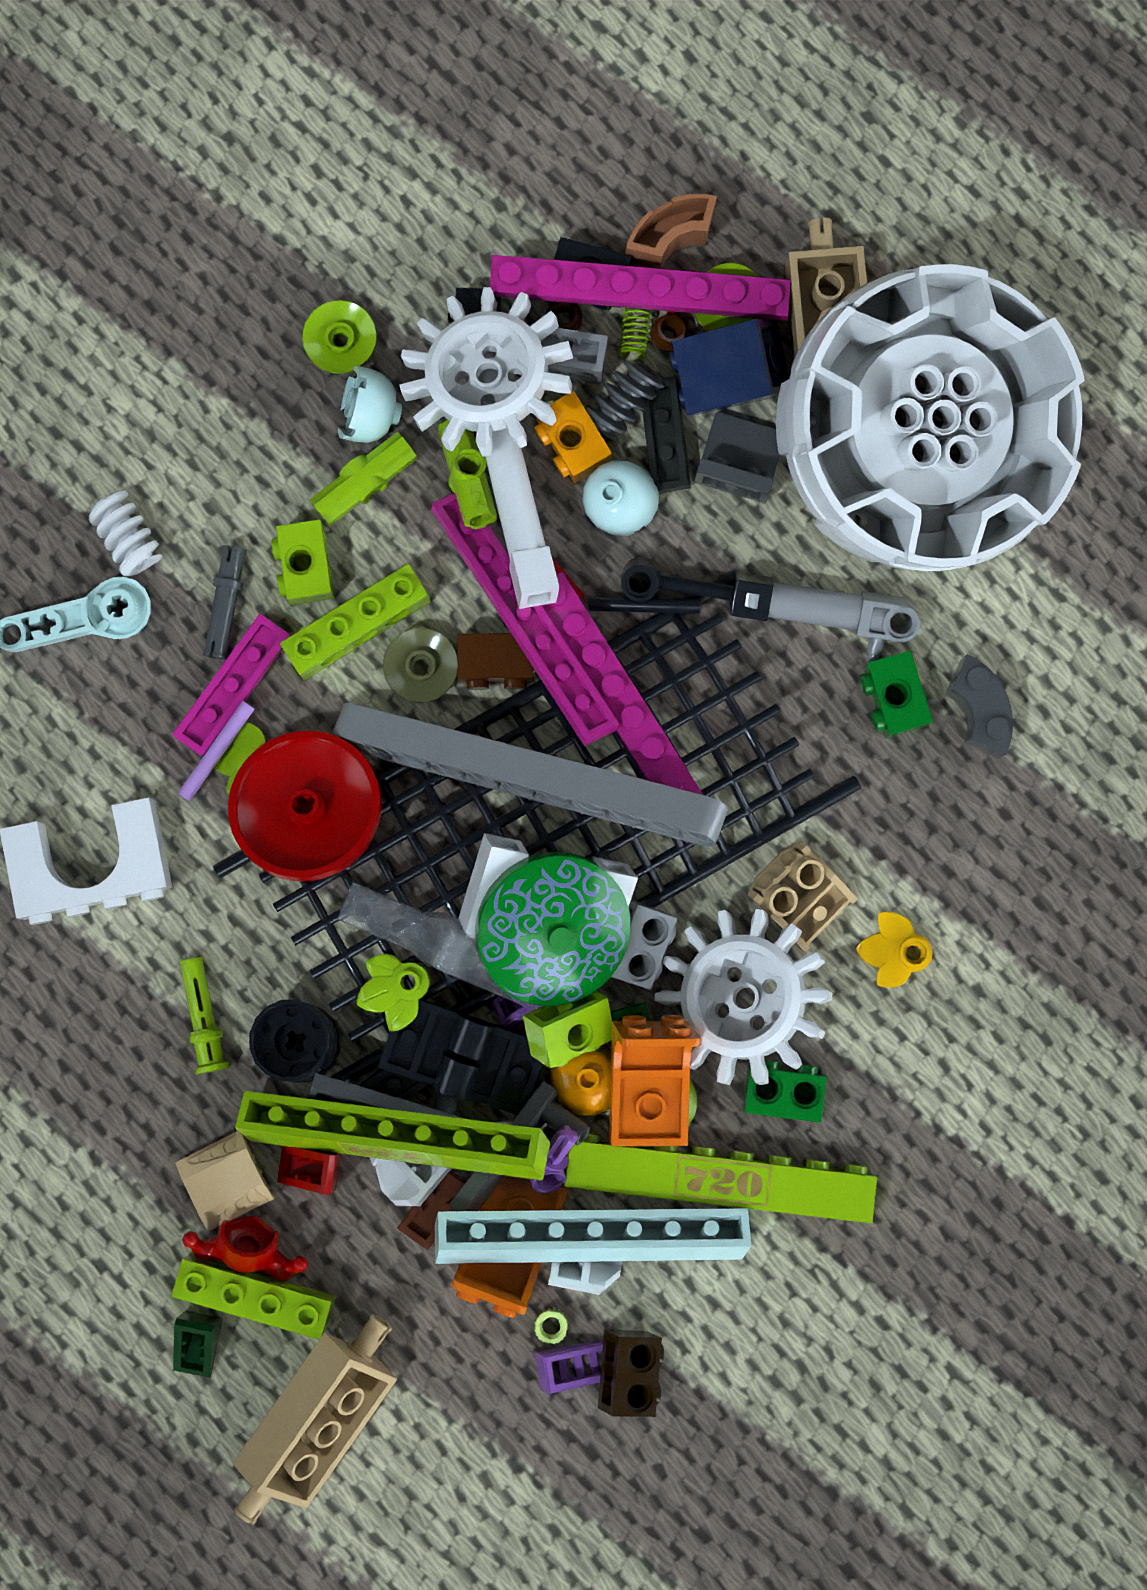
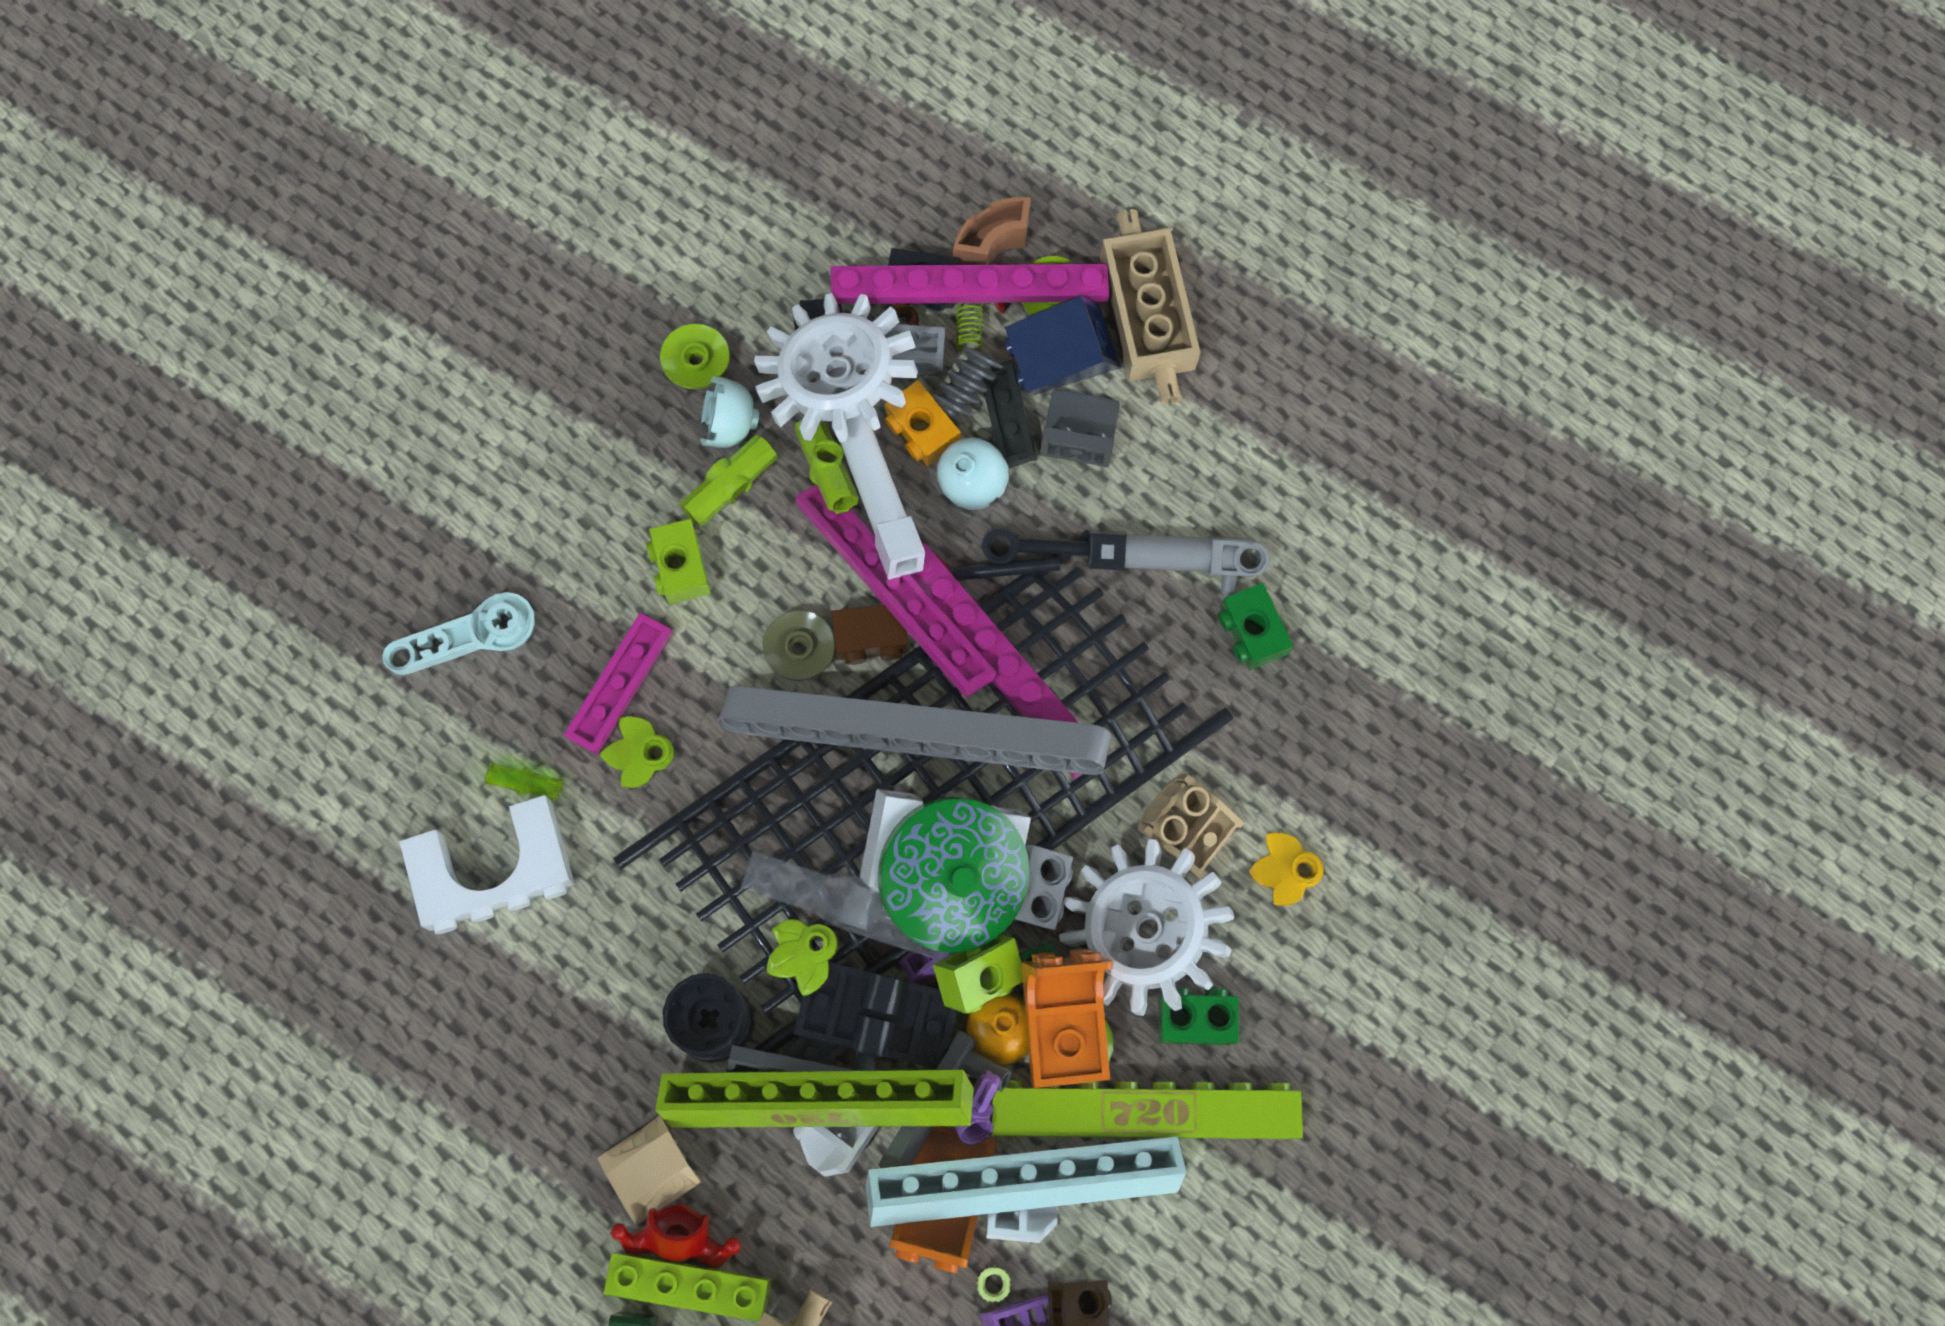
camera: 10 degrees left, 10 degrees down
(122, 534) = (502, 554): white piece -> none
(129, 778) = (524, 781): none -> clear neon green pin
(194, 970) = (600, 962): lime pin -> none
(216, 750) = (608, 746): lavender bar -> none
(224, 602) = (607, 592): dark grey pin -> none
(304, 806) = (698, 786): red dish -> none
(309, 1169) = (733, 1148): red slope -> none
(355, 622) = (733, 611): lime brick -> none
(420, 1220) = (851, 1186): copper plate -> none
(670, 323) = (998, 316): reddish brown plate -> none
(860, 462) = (1192, 408): white wheel -> none
(984, 705) = (1339, 629): dark grey brick -> none

